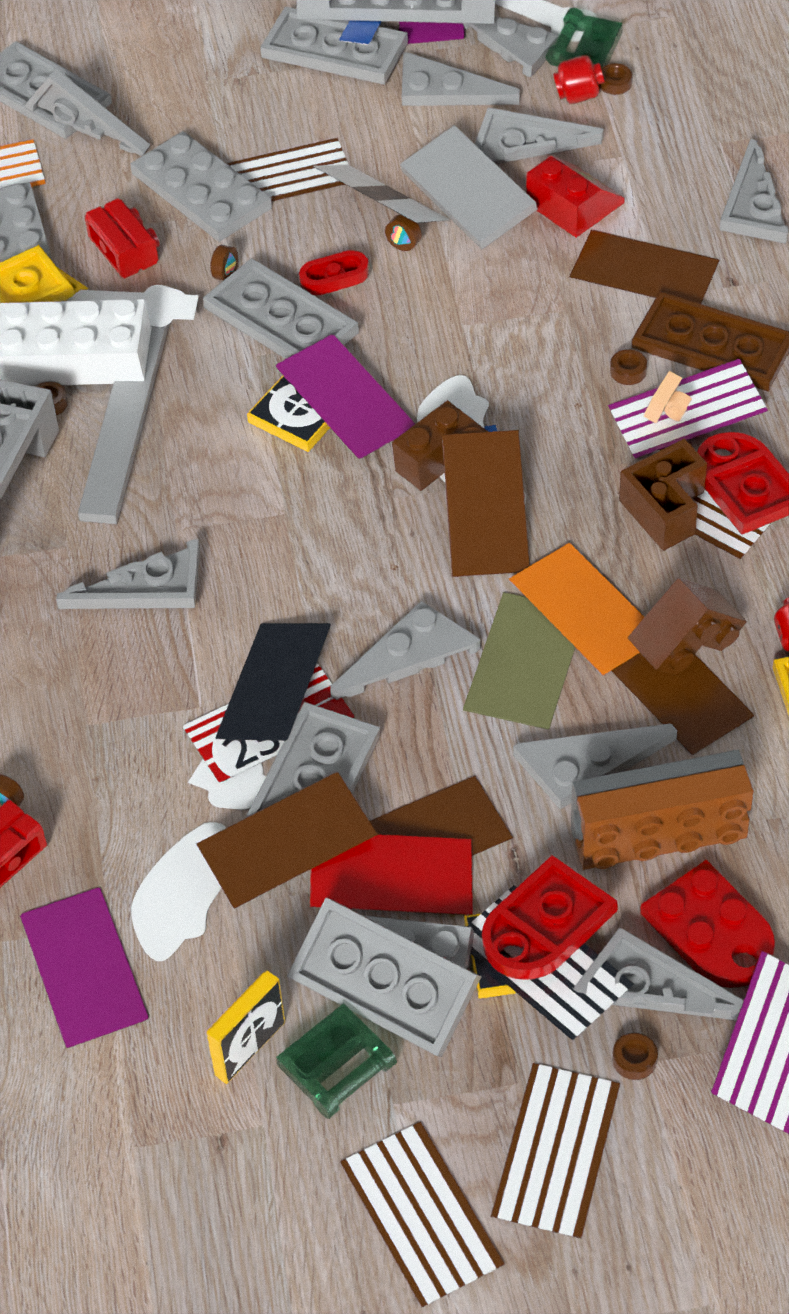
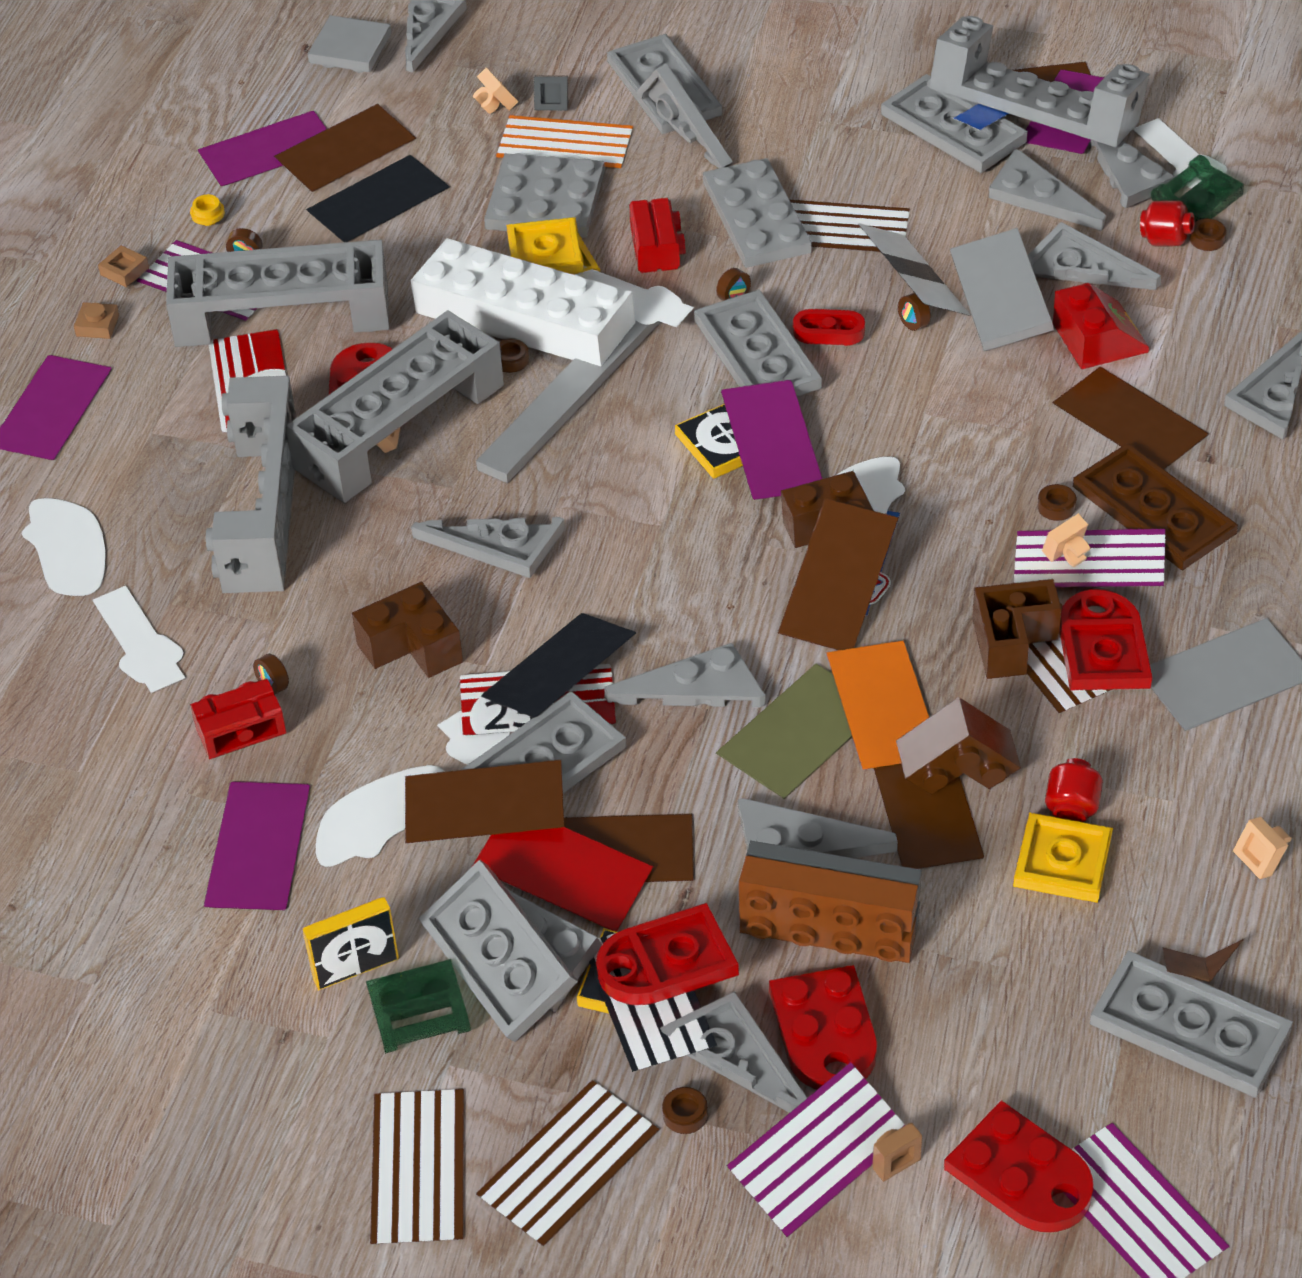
camera: 25 degrees right, 5 degrees down
(114, 694) = (406, 625): none -> reddish brown brick

